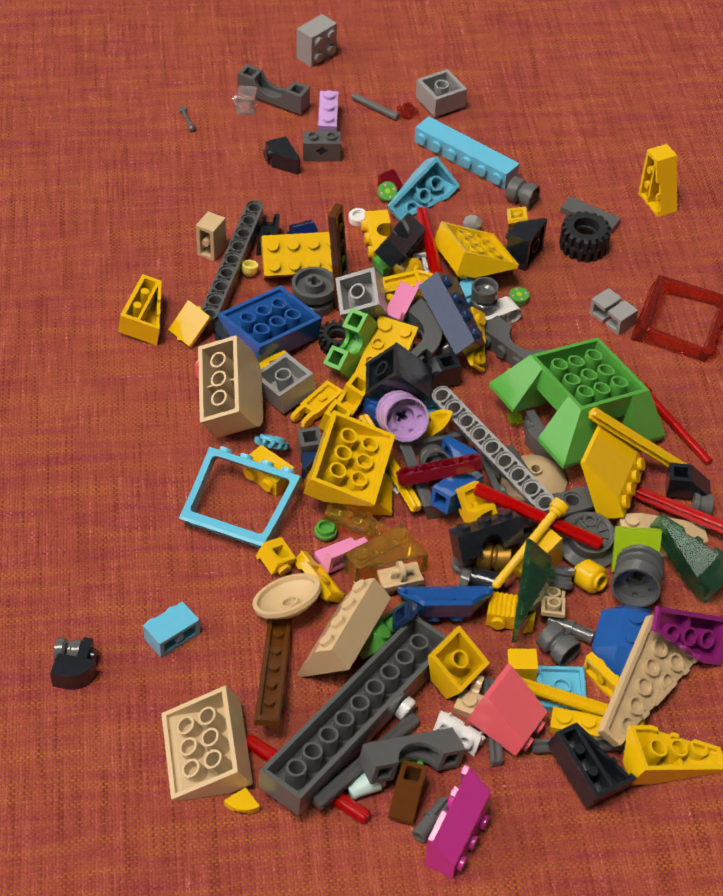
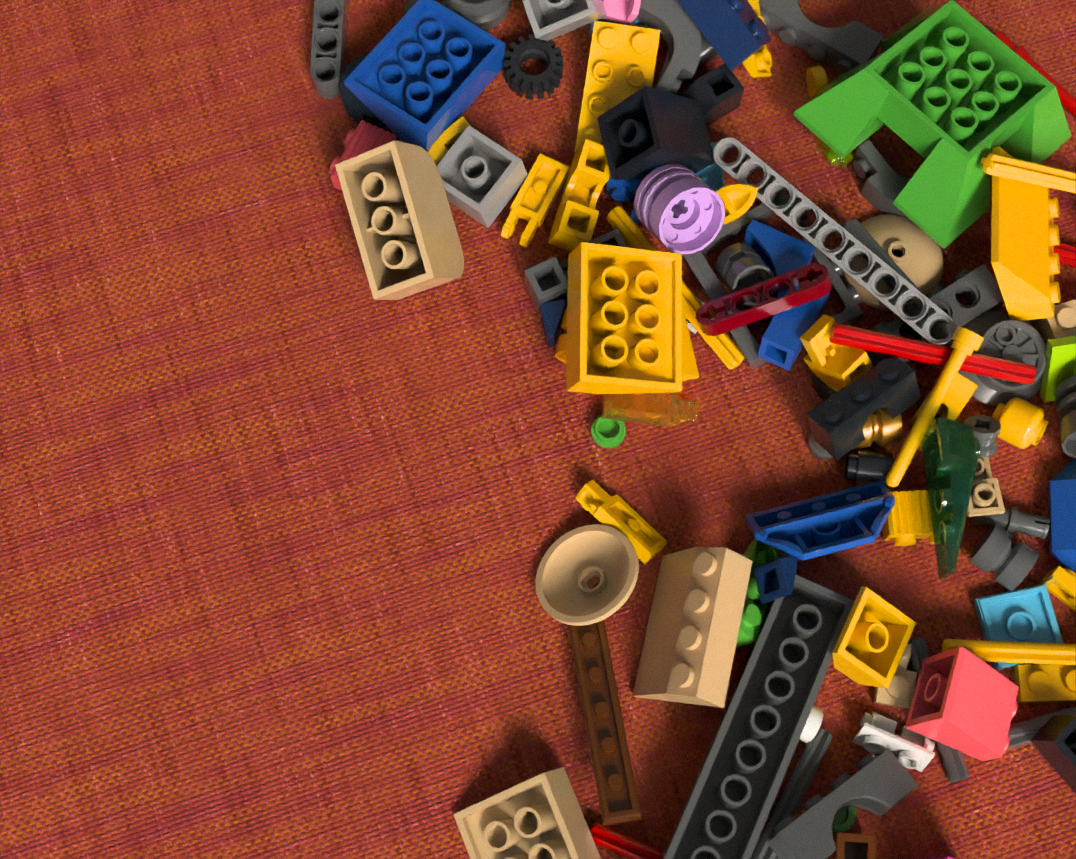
camera: 10 degrees left, 25 degrees up
(67, 647) = (286, 745): dark grey wheel -> none
(75, 672) = (308, 780): black brick -> none
(142, 312) = (219, 88): yellow wedge -> none
(171, 629) = (427, 668): medium azure brick -> none
(189, 323) = (299, 94): yellow piece -> none
(189, 513) = (459, 467): medium azure windscreen -> none
(267, 482) = (494, 344): yellow brick -> none
(271, 441) = (486, 290): medium azure gear -> none
(276, 556) = (550, 501): yellow brick -> none
(333, 556) = (642, 468): bright pink panel -> none
(359, 330) = (570, 62): bright green arch -> none
(382, 553) = (713, 460): clear yellow wedge -> none
(400, 575) = (743, 495): tan hips -> none
(465, 577) = (838, 474): dark grey tile -> none
(524, 662) = (960, 605): yellow panel -> none

